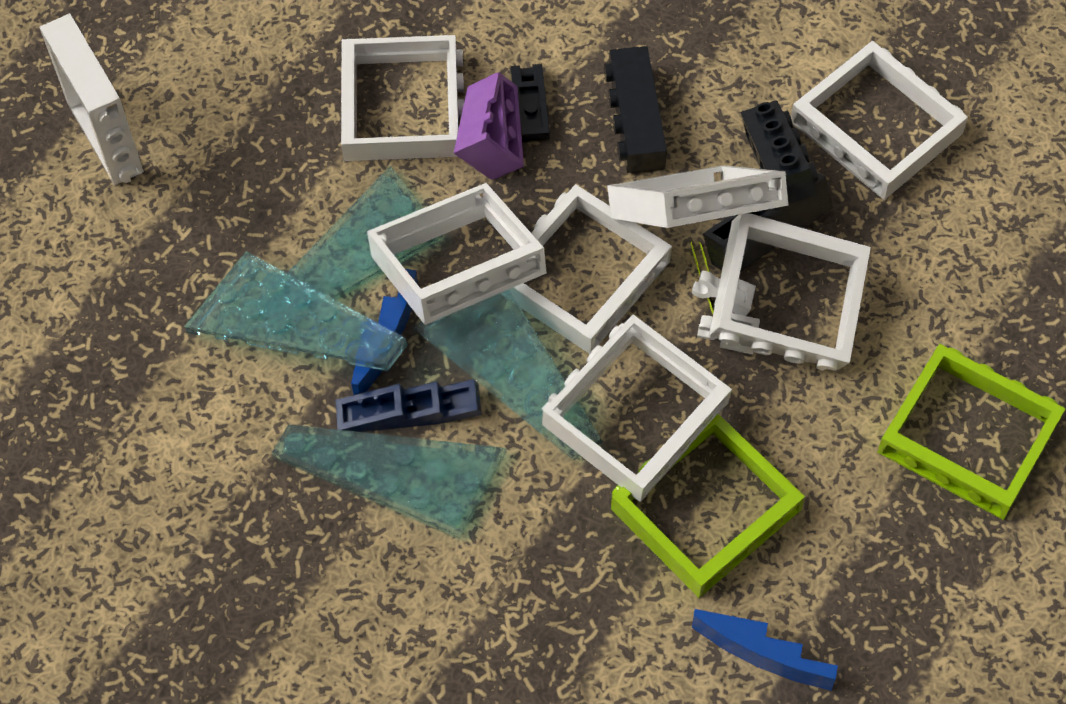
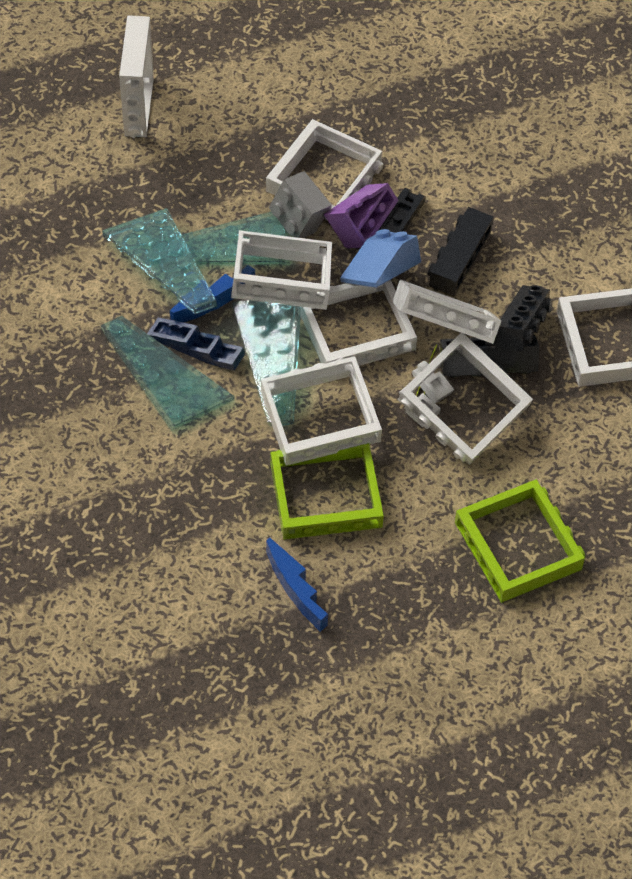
camera: 30 degrees right, 5 degrees down
(413, 158) = (299, 205): none -> light grey brick
(561, 172) = (382, 258): none -> medium blue slope

